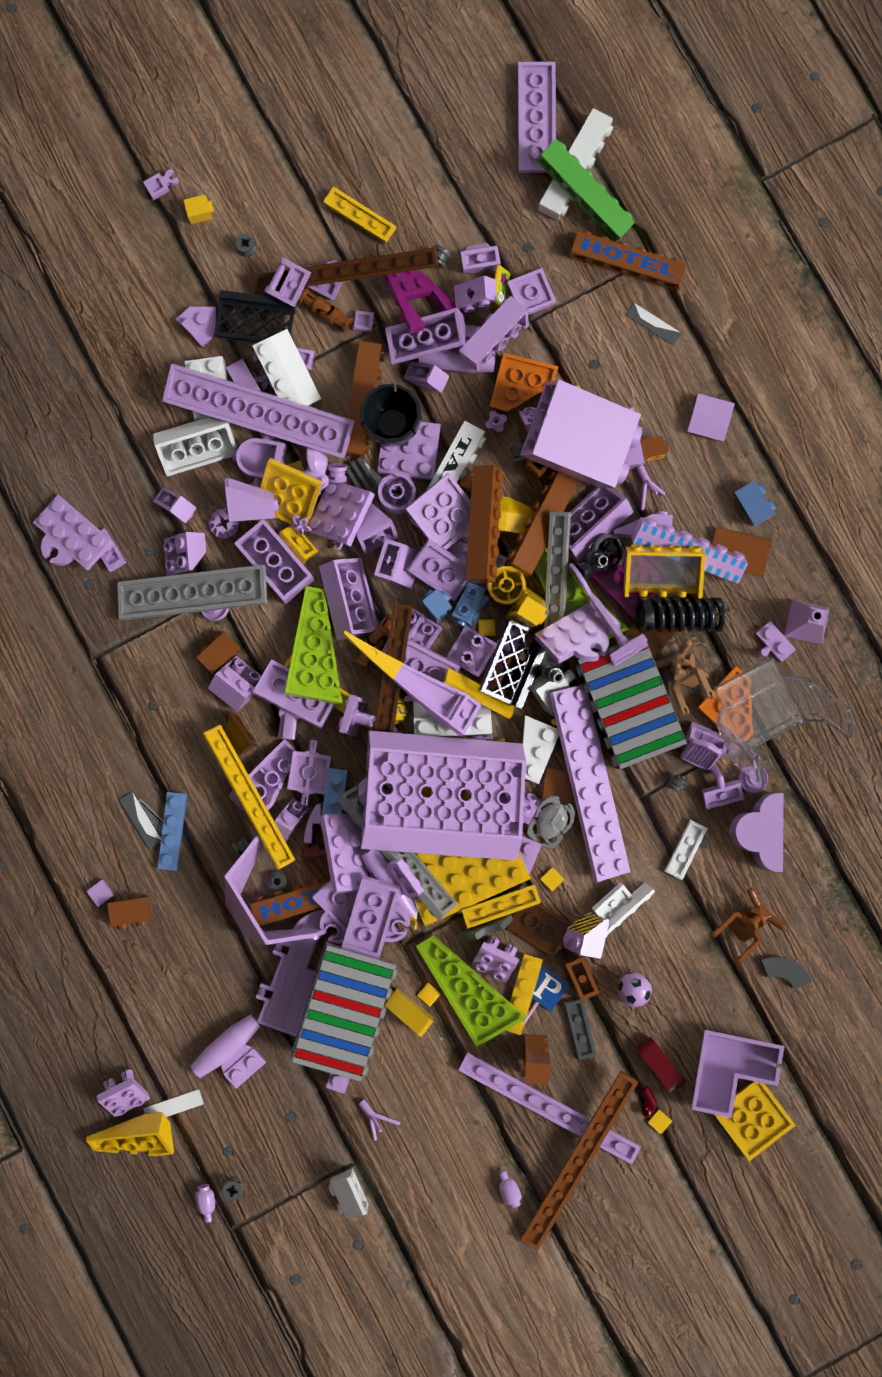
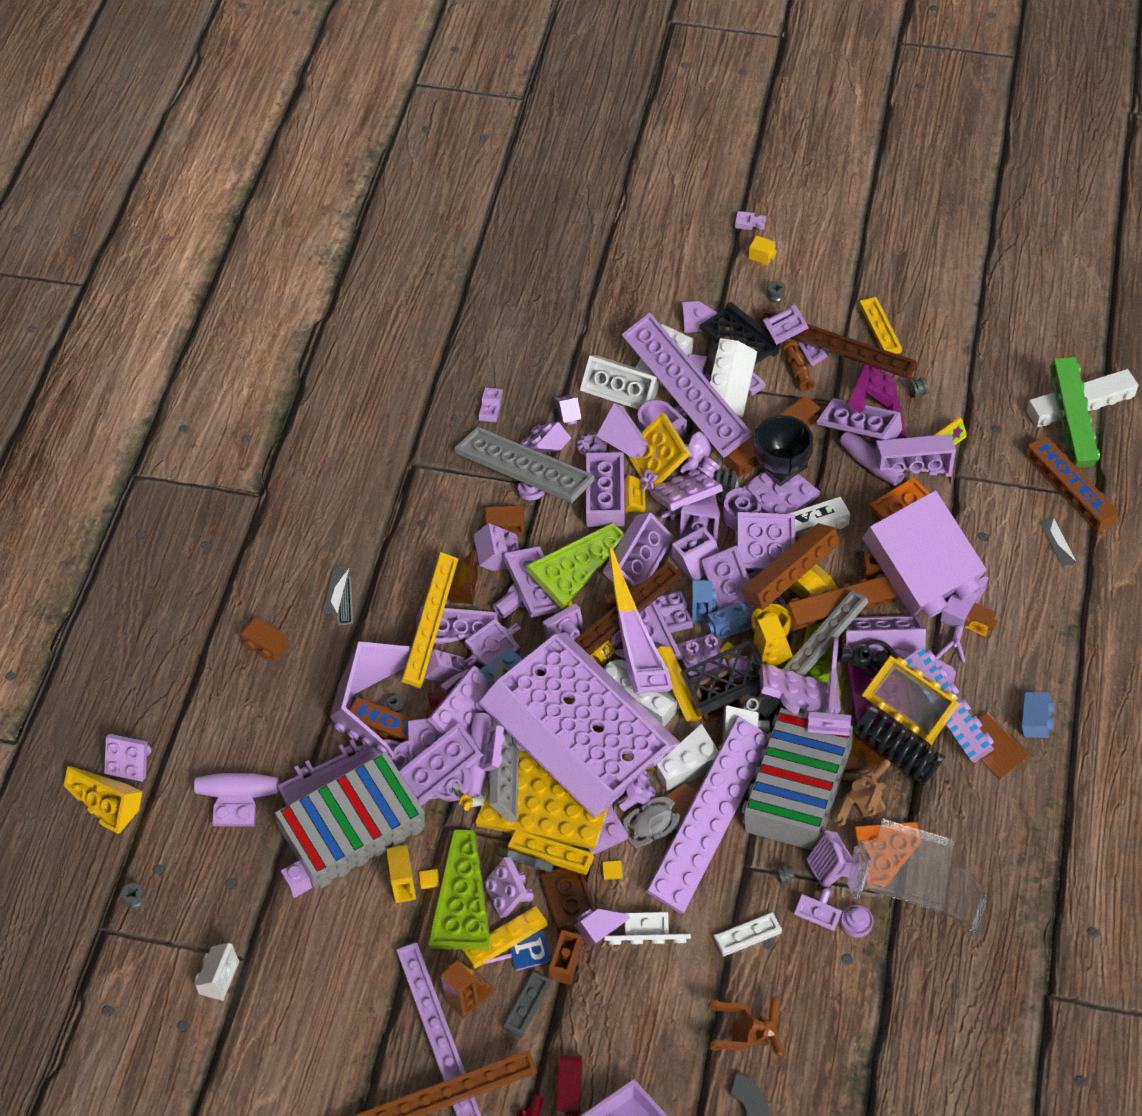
camera: 40 degrees right, 30 degrees down
(71, 535) = (473, 376): lavender plate -> none
(100, 893) = (256, 611): lavender tile -> none
(172, 831) = (350, 613): medium blue plate -> none
(177, 1104) = (161, 805): white sticker -> none
(205, 1201) = (103, 887): lavender plant -> none
(363, 321) = (821, 392): lavender tile -> none
(371, 1115) = (294, 930): lavender plant -> none
(426, 376) = (838, 454): lavender slope -> none
(475, 294) = (925, 423): lavender brick -> none
(480, 258) = (948, 408): lavender slope -> none
(496, 426) = (866, 523): lavender plate -> none
(509, 1191) = (345, 1083): lavender plant -> none
(532, 291) = (973, 455): lavender plate -> none
(535, 113) = (1084, 343): lavender plate -> none
(634, 989) = (602, 1003): lavender piece -> none
(710, 417) = (1050, 631): lavender slope -> none
(762, 832) = (827, 959): lavender brick -> none
(774, 642) = (966, 832): lavender plate -> none
(806, 621) = (1012, 836): lavender slope -> none

